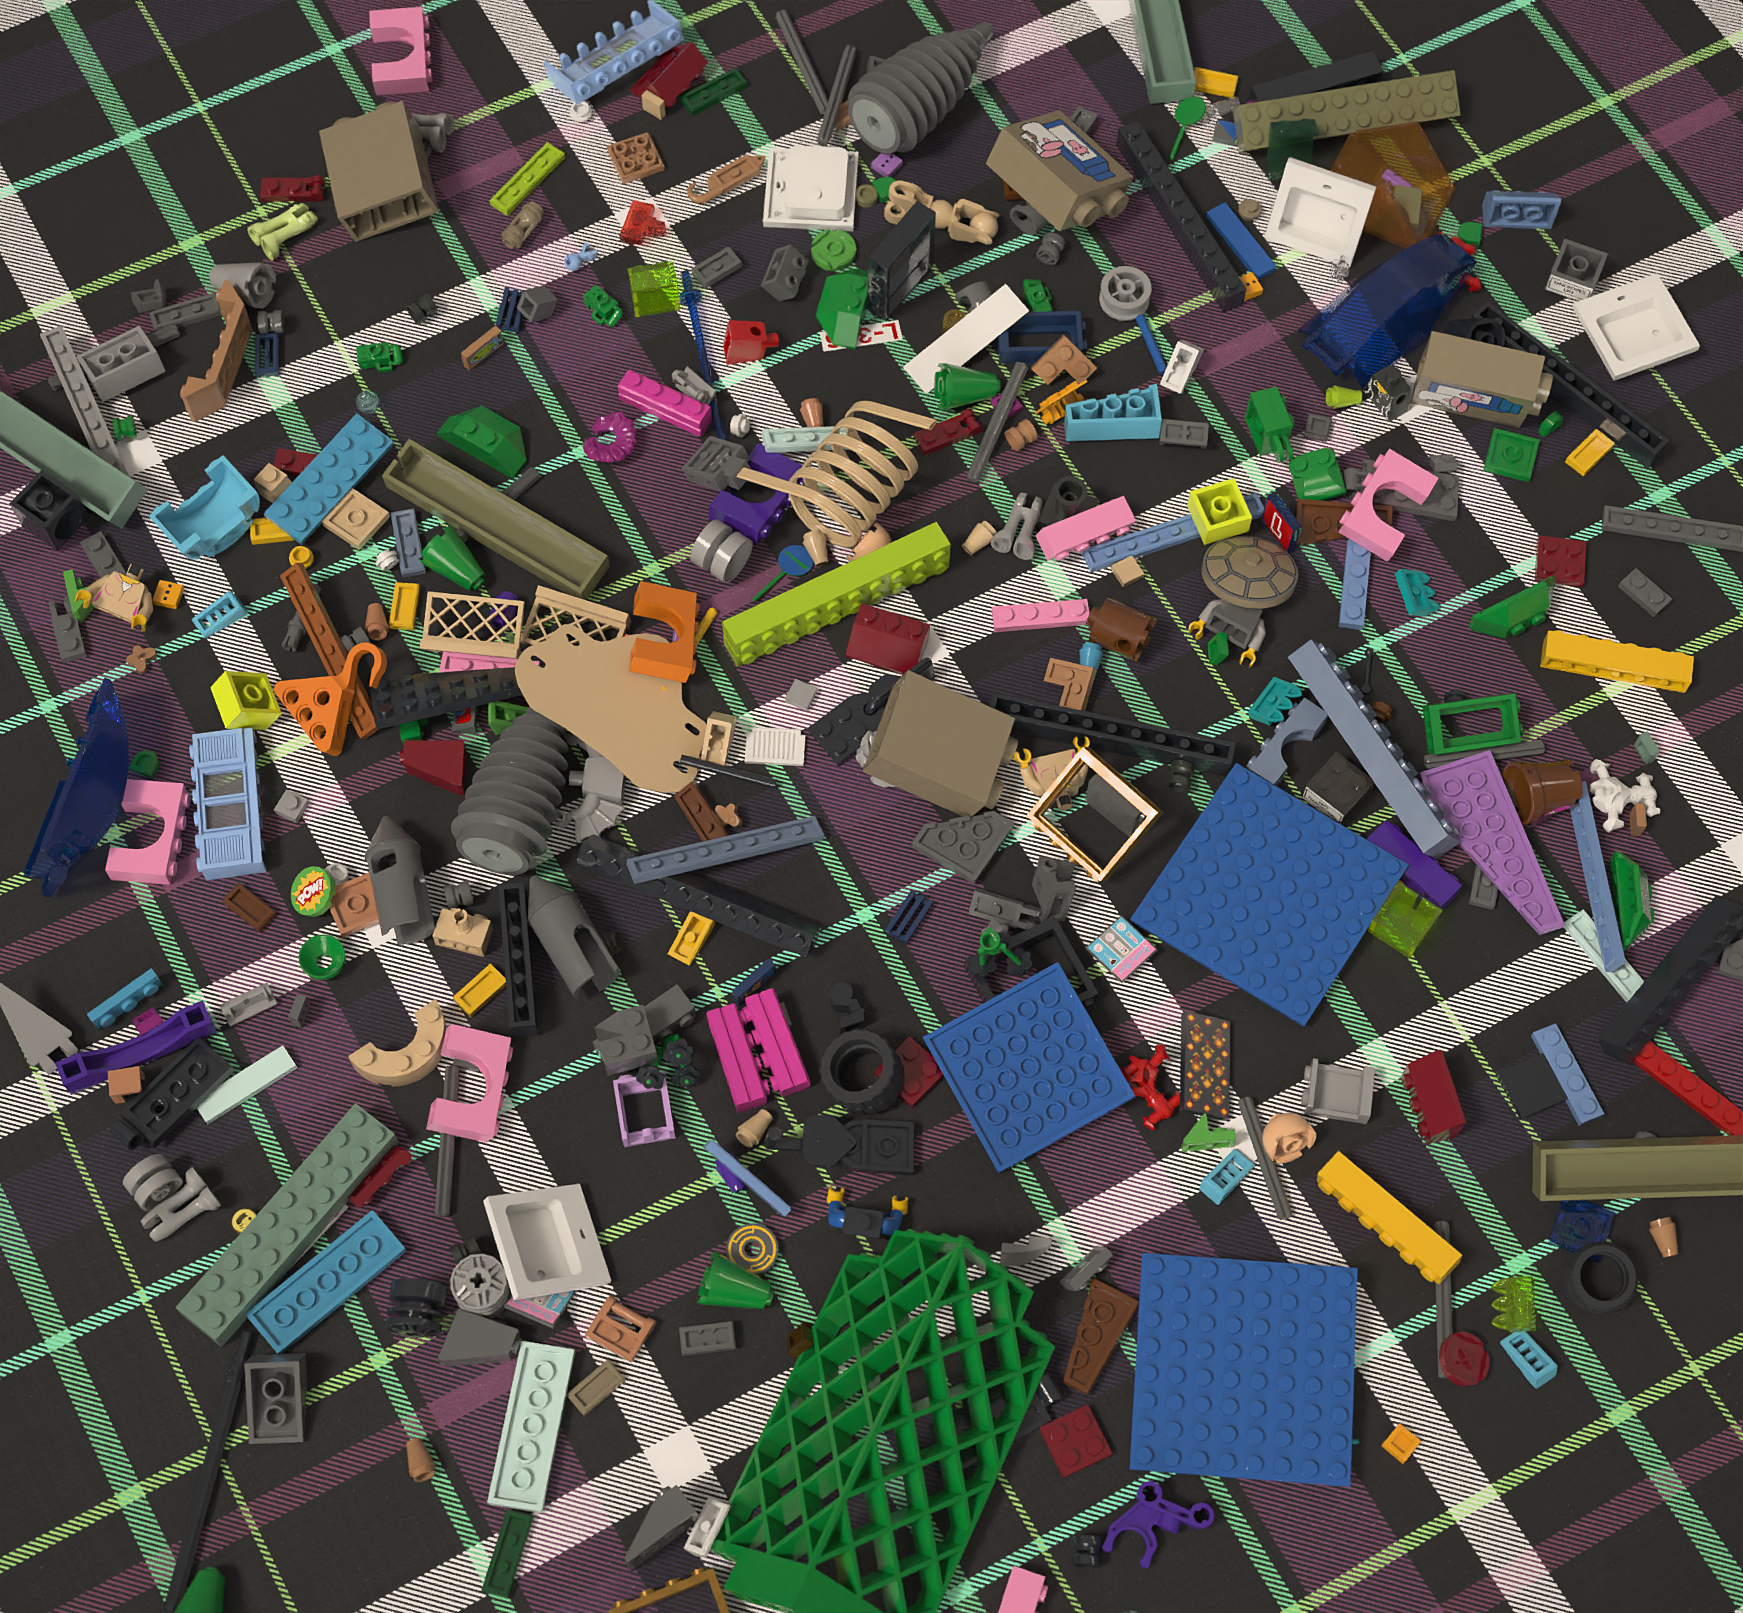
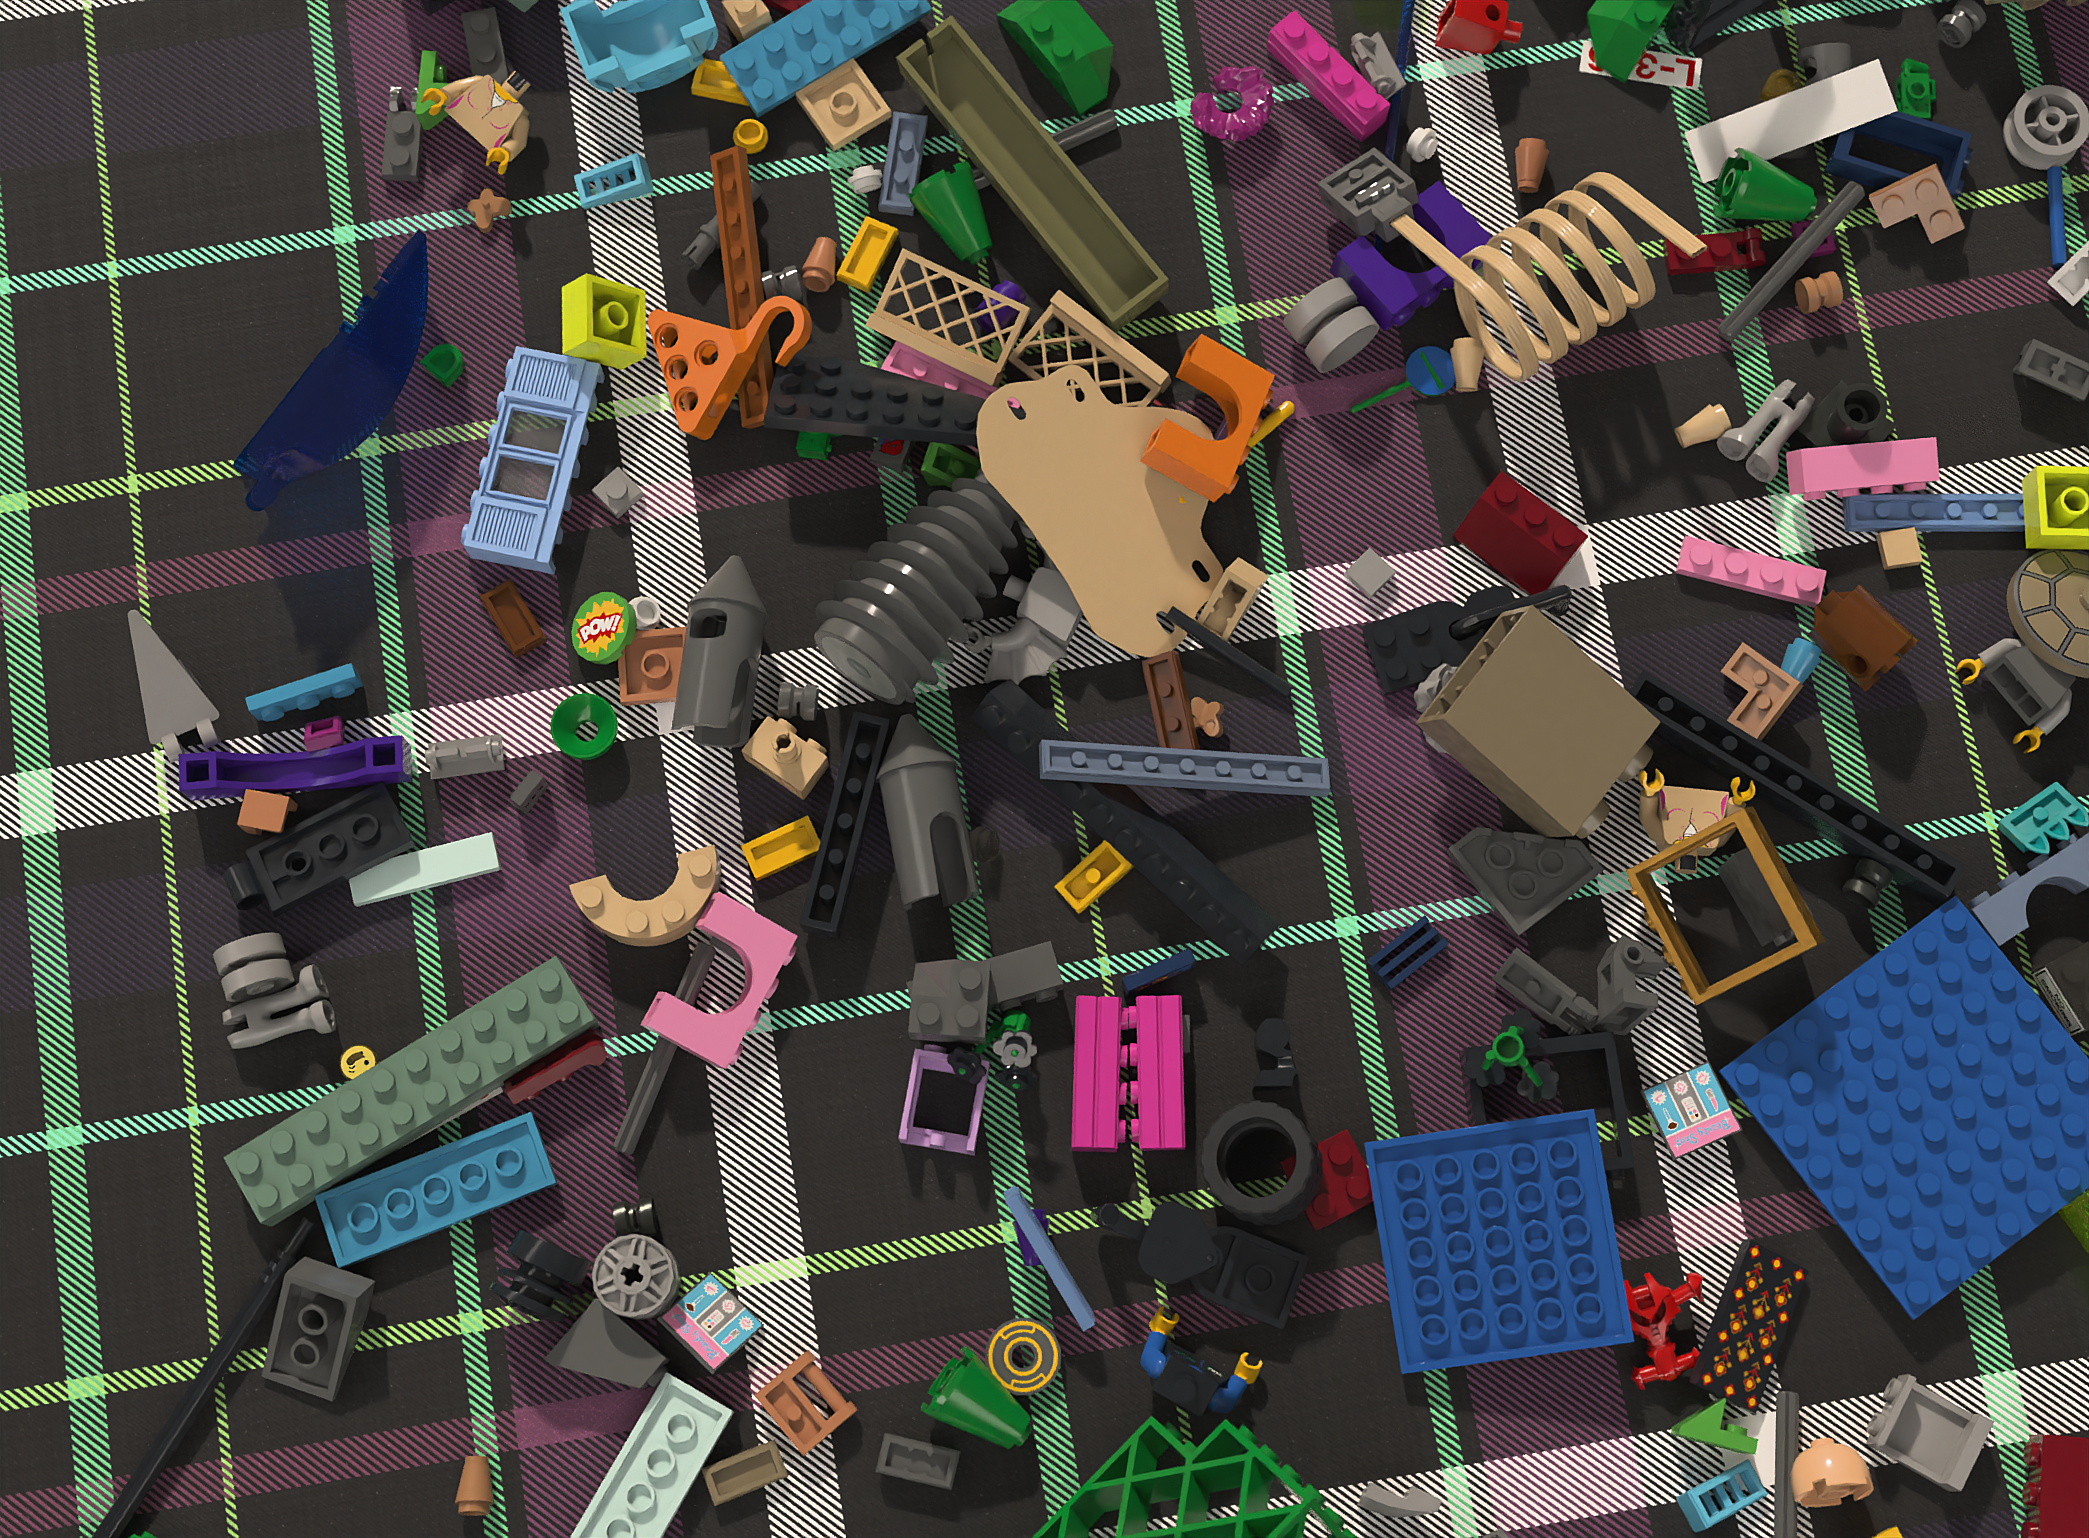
camera: 20 degrees right, 10 degrees up
(156, 862) = (414, 510): bright pink arch -> none
(168, 594) = (554, 129): light orange tile -> none
(437, 763) = (834, 499): dark red slope -> none
(546, 1241) = (745, 1249): white piece -> none
(753, 1129) = (1085, 1184): tan cone -> none
(775, 746) = (1307, 636): white window -> none
(796, 439) = (1497, 193): light aqua tile -> none
(799, 1339) = (1042, 1514): dark brown tile -> none
(836, 594) = (1472, 445): lime piece -> none
(870, 542) = (1544, 393): light nougat cylinder -> none
(1055, 405) = (1899, 263): light orange hinge -> none
(1115, 417) = (1966, 312): medium azure wedge -> none
(1218, 648) = (1990, 711): green tile -> none

